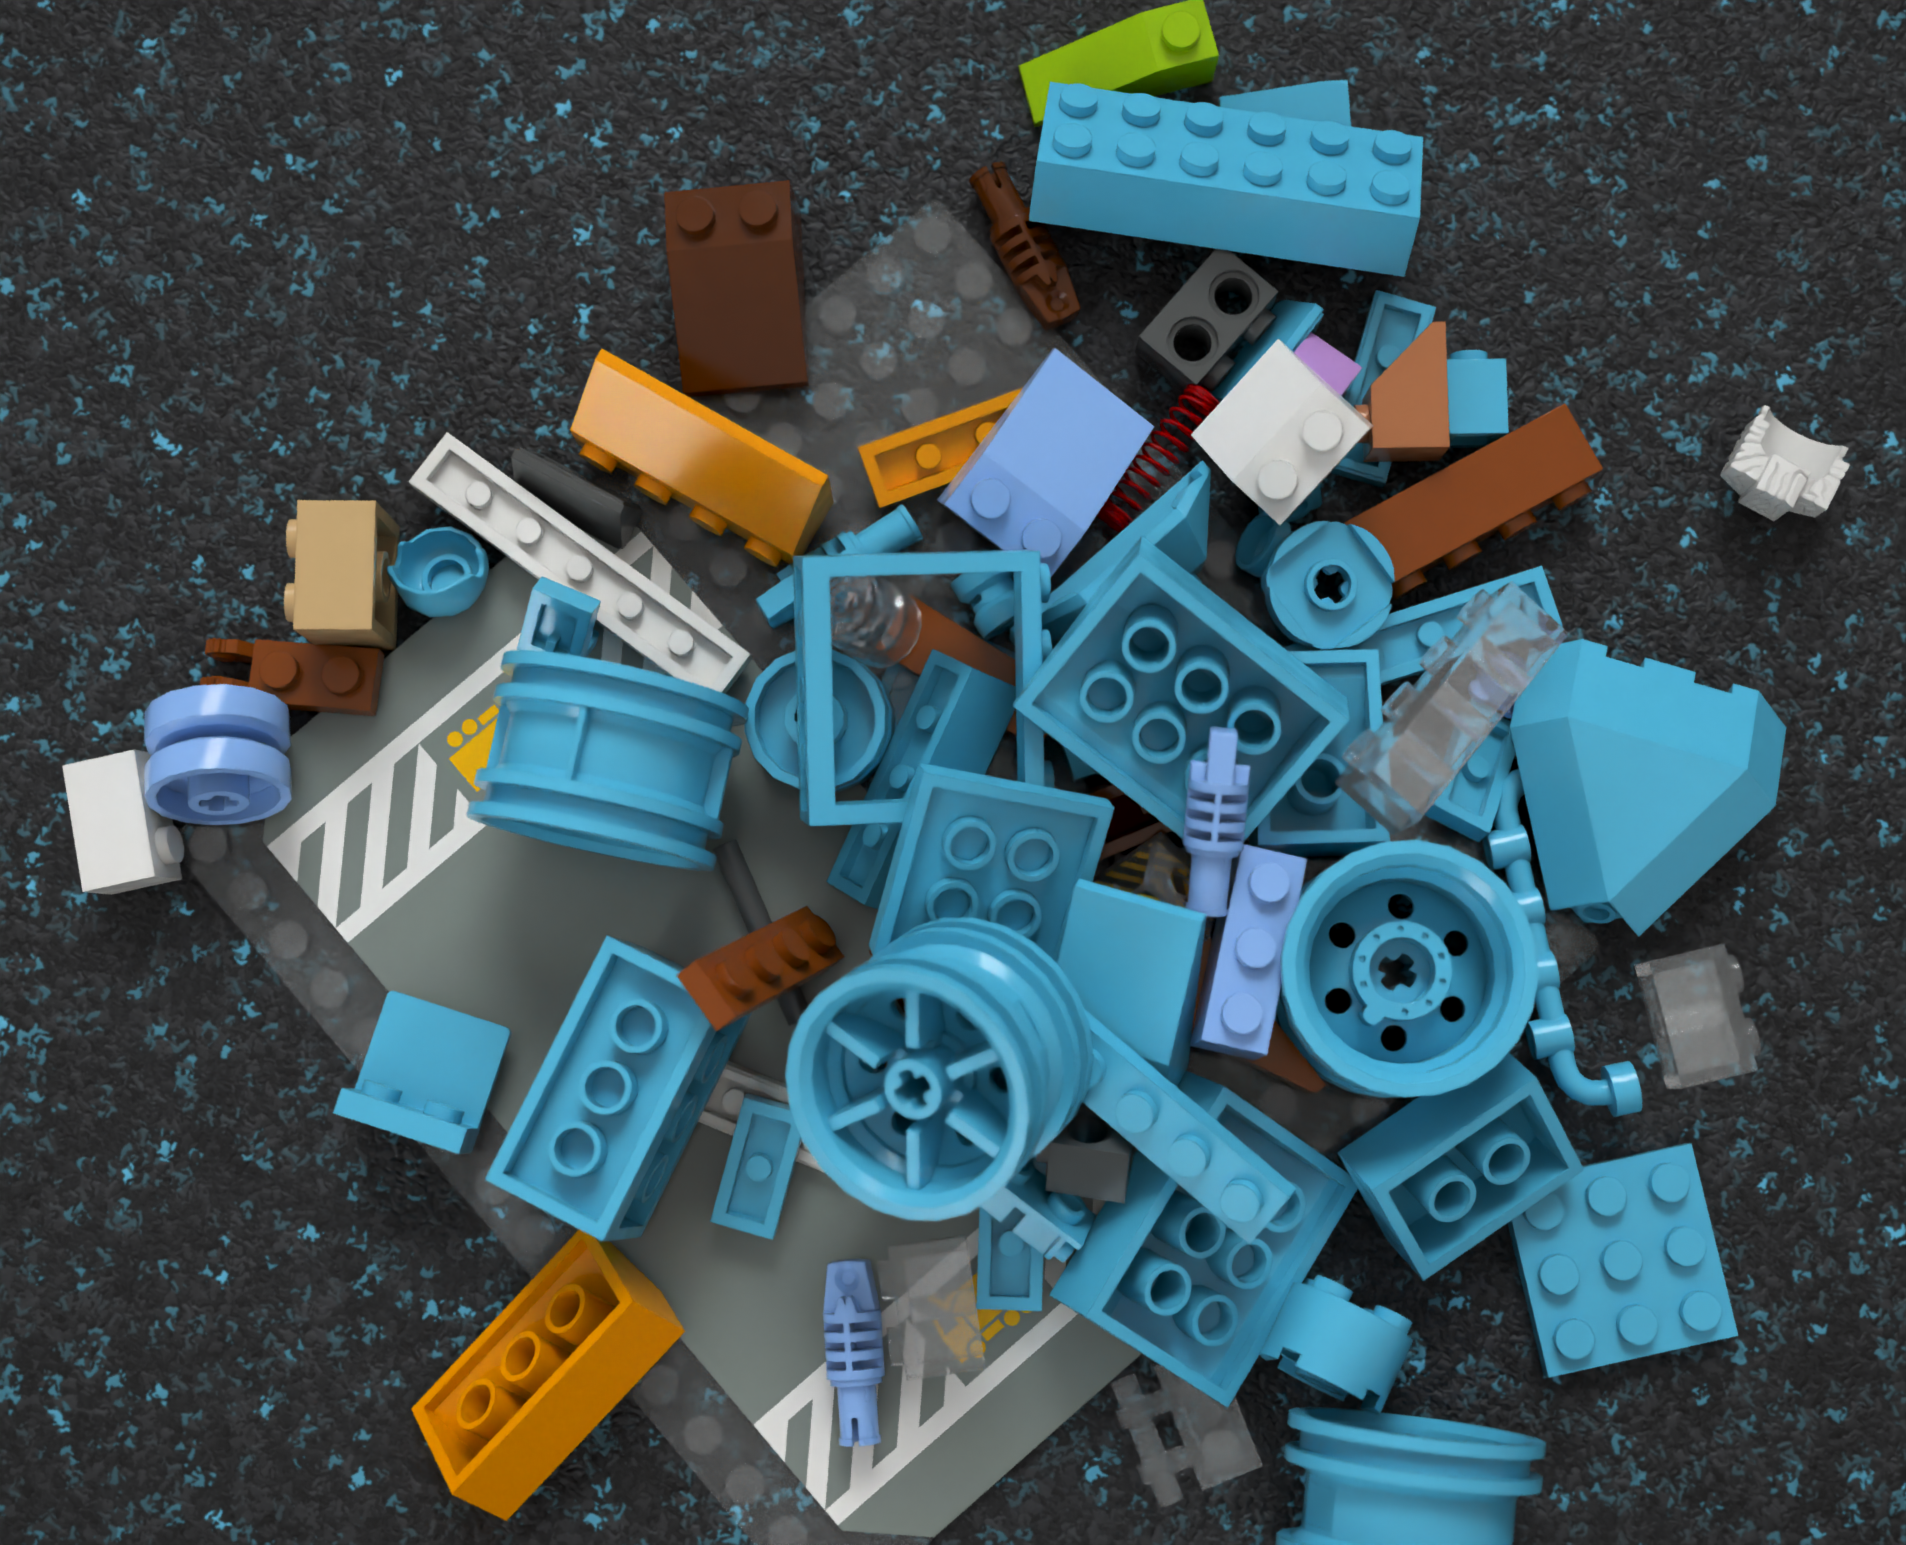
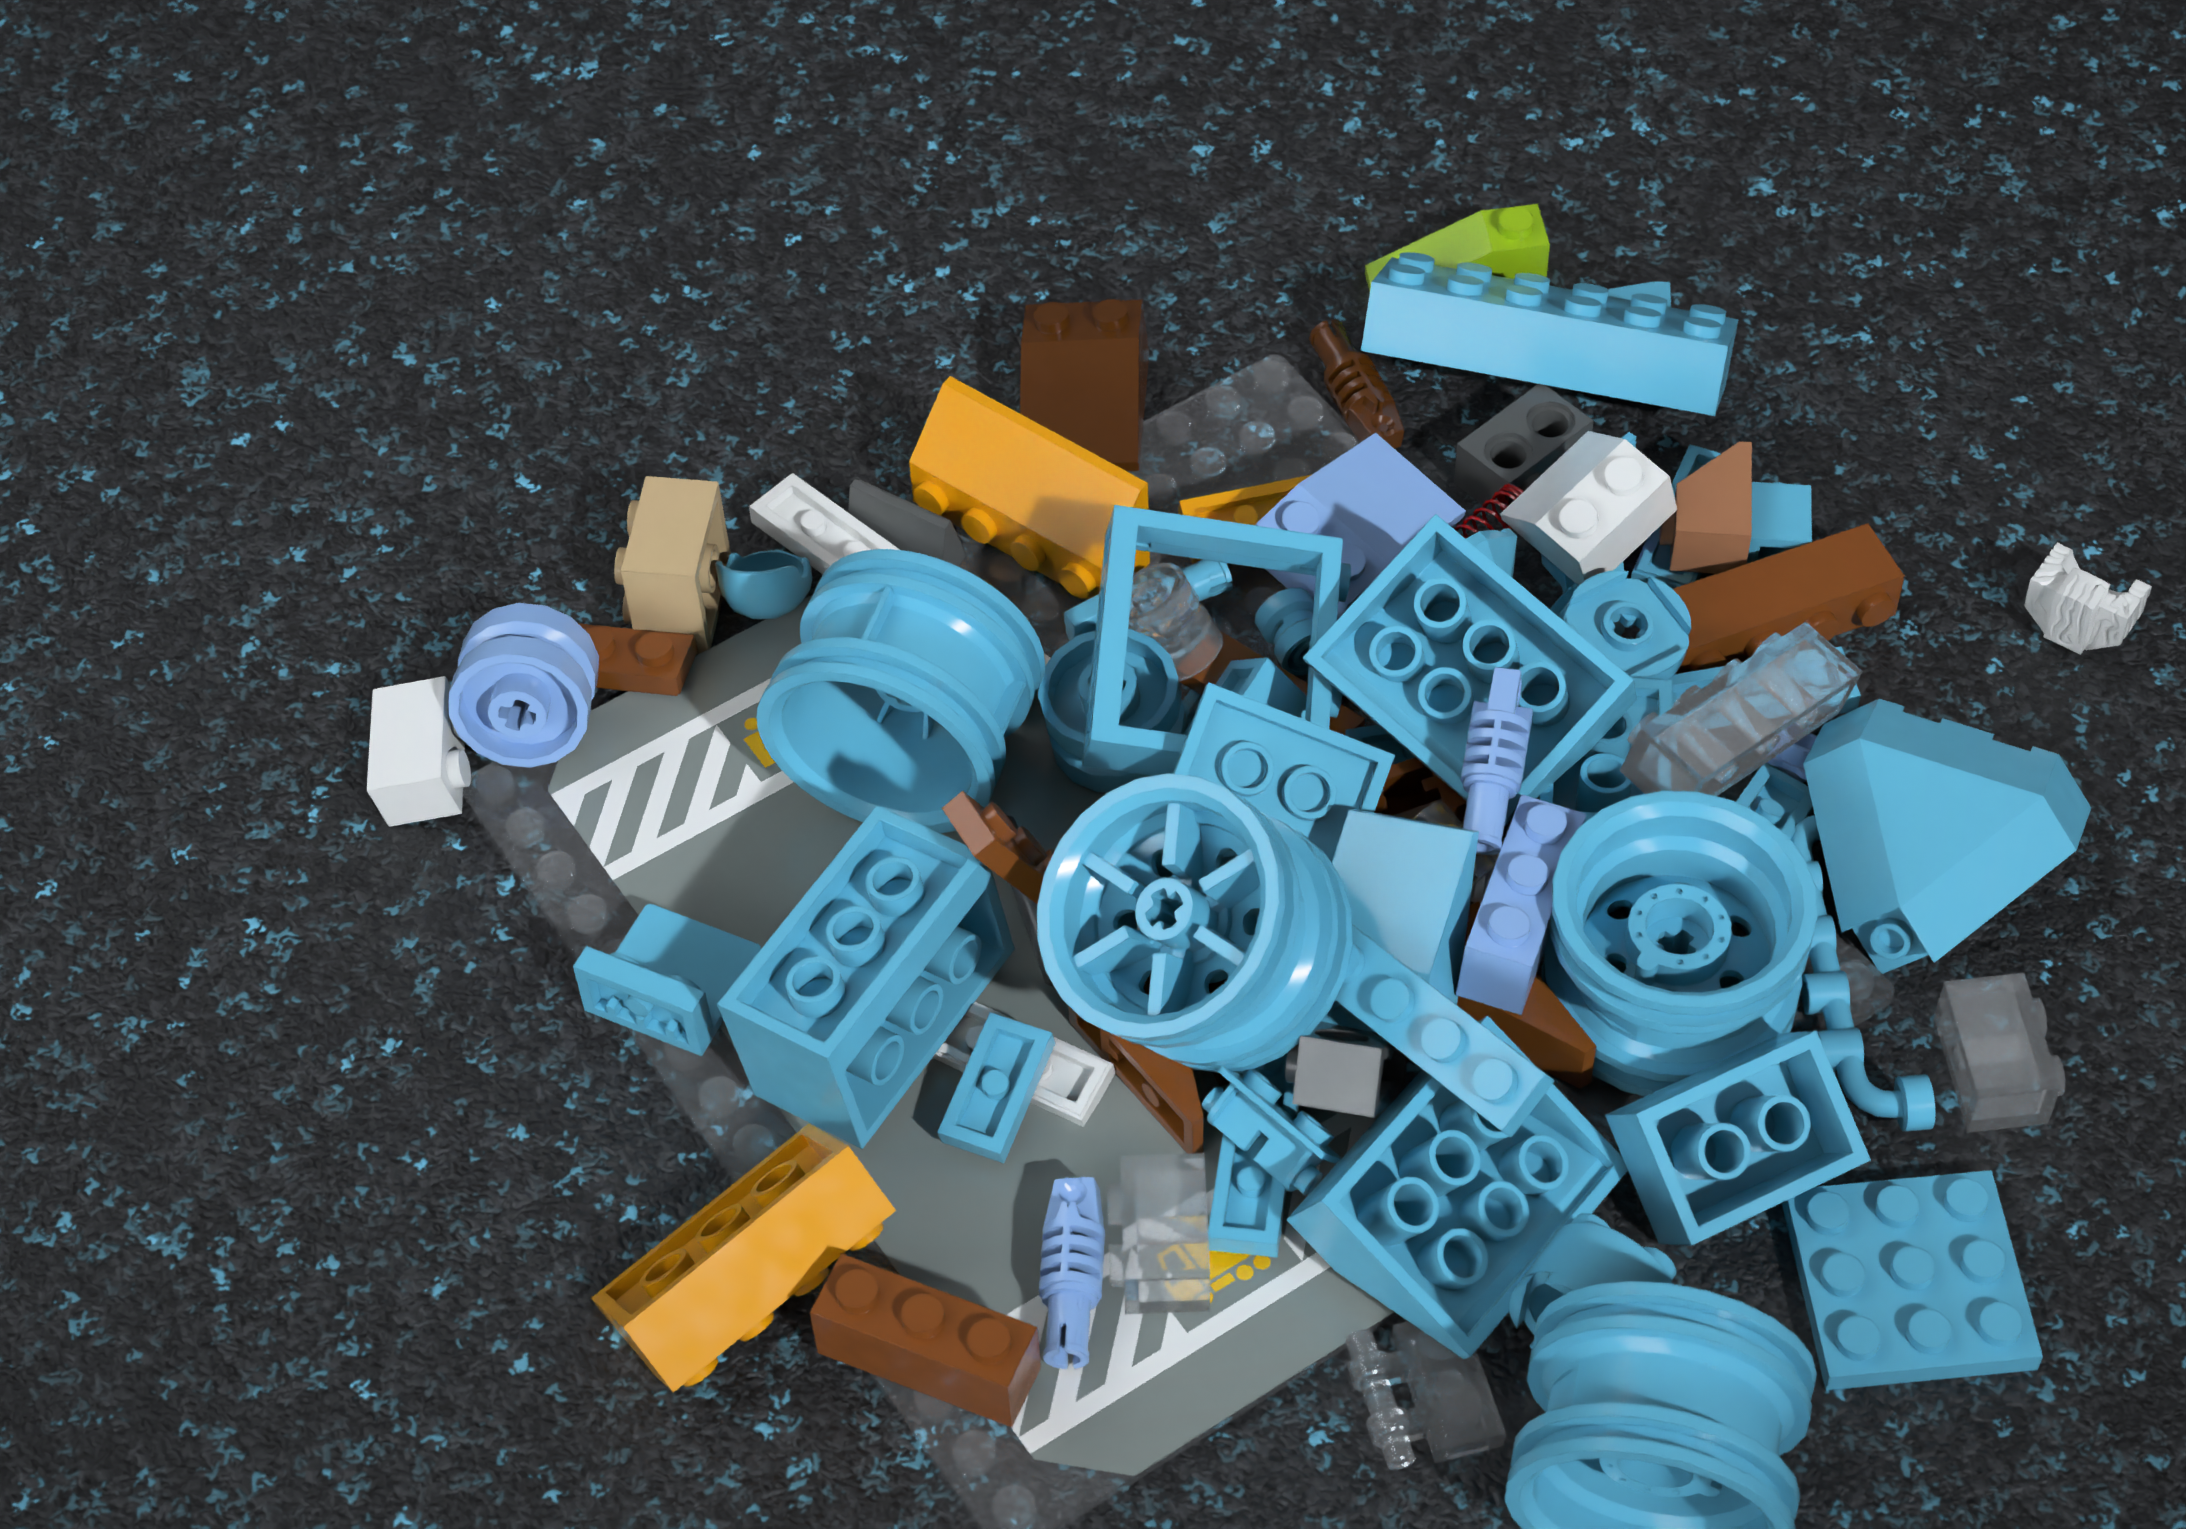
camera: 10 degrees right, 30 degrees down
(730, 1453) = (926, 1339): none -> dark orange brick

